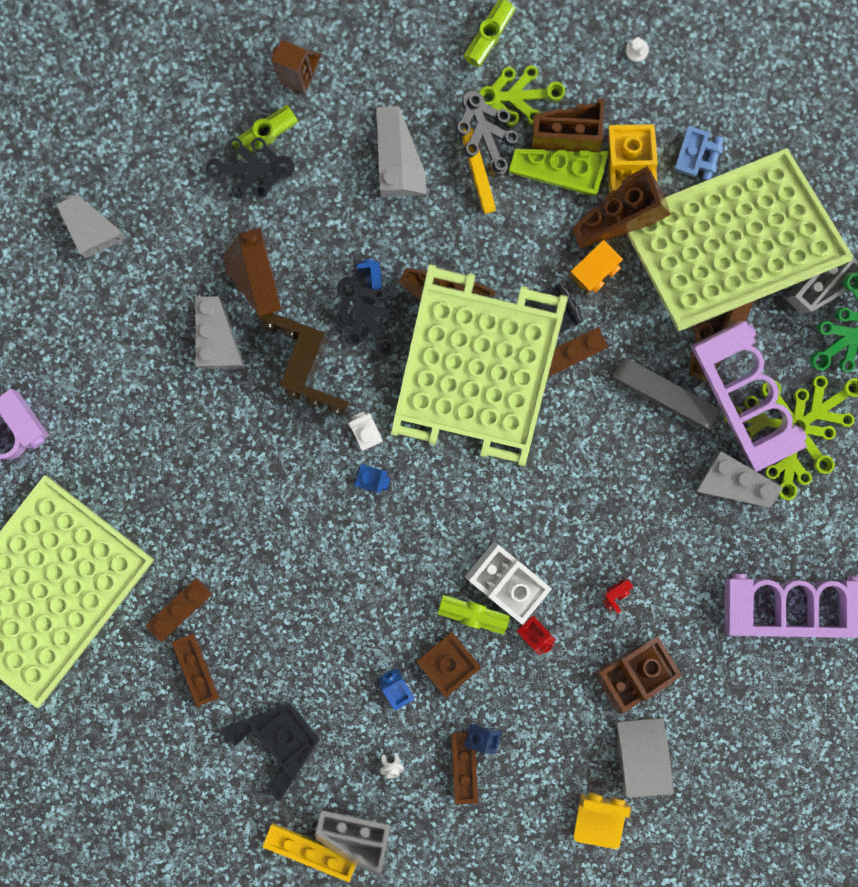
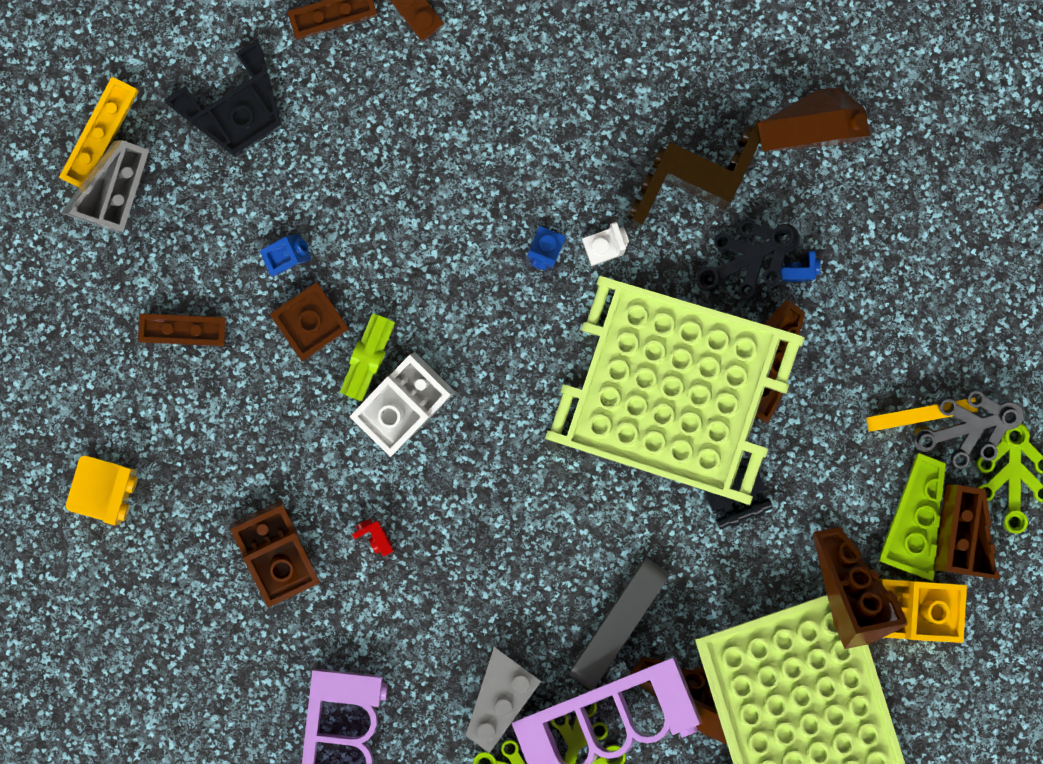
camera: 90 degrees right, 0 degrees up
(214, 336) = (739, 69): light grey wedge -> none
(253, 167) = (948, 135): black plant -> none
(277, 123) = (983, 135): lime piece -> none
(391, 770) = (188, 241): white plate -> none
(399, 162) = (944, 316): light grey wedge -> none
(483, 739) = (214, 355): dark blue bracket -> none
(536, 636) = (333, 433): red bracket -> none
(577, 351) = (682, 515): reddish brown plate -> none
(596, 267) = (786, 551): light orange hinge -> none
(644, 757) = (172, 551): light grey slope -> none
(692, 151) = (925, 688): medium blue plate -> none

